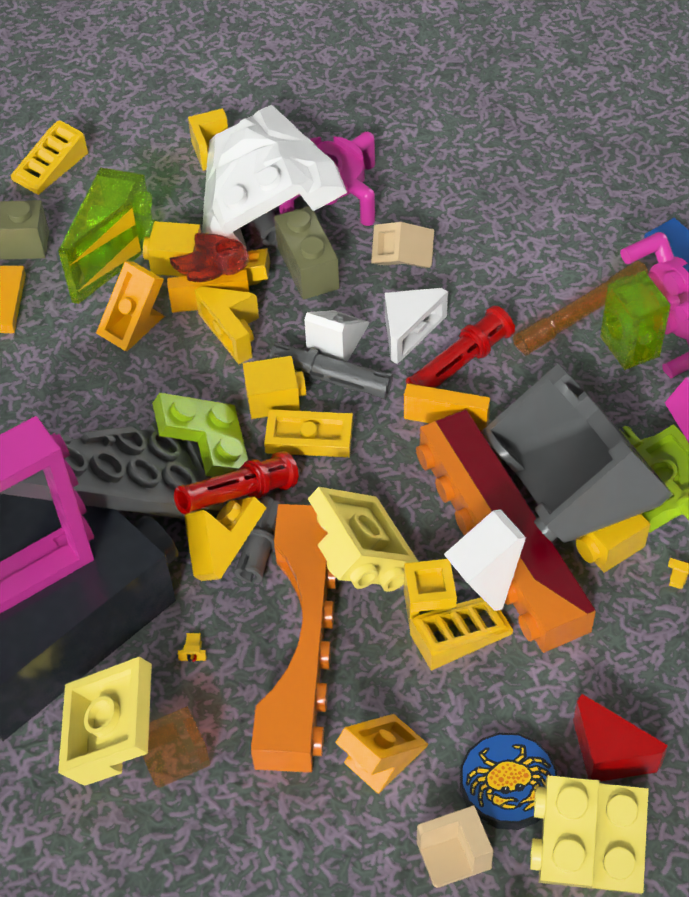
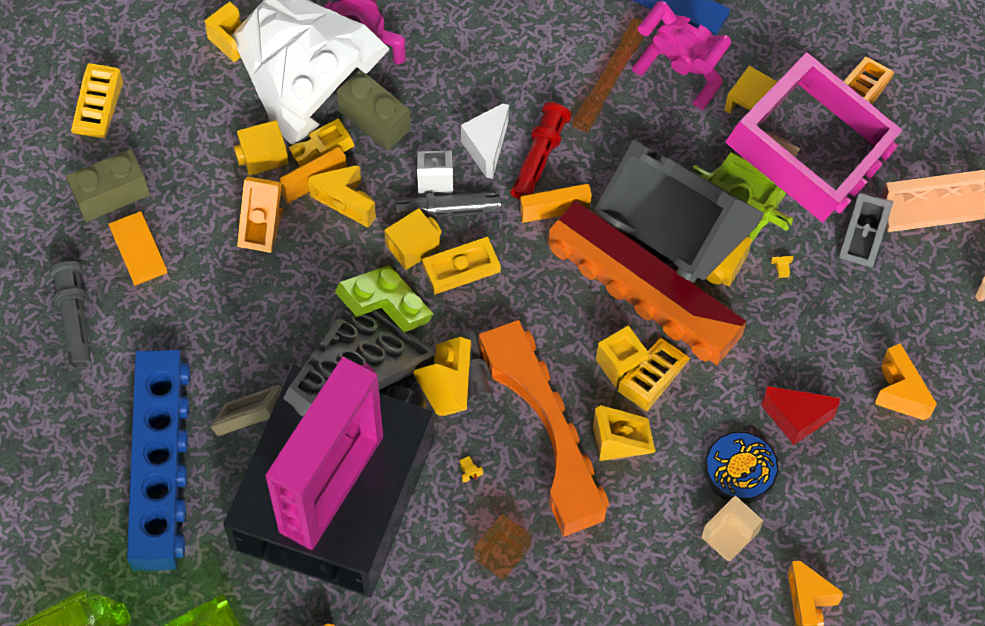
camera: 30 degrees left, 10 degrees up
(105, 721) = (451, 549): light yellow plate -> none
(106, 231) = (205, 143): clear neon green slope -> none
(213, 258) = (307, 148): clear red plate -> none
(251, 479) = (421, 353): red pin -> none
(360, 539) = (561, 339): light yellow plate -> none
(380, 749) = (647, 485): light orange slope -> none
(381, 678) = (621, 434): none -> yellow slope
(402, 244) = (445, 74): tan panel -> none
(489, 557) = (658, 312): white slope -> none
(590, 834) = (815, 480): light yellow plate -> none
(634, 320) = (662, 75): clear neon green brick -> none

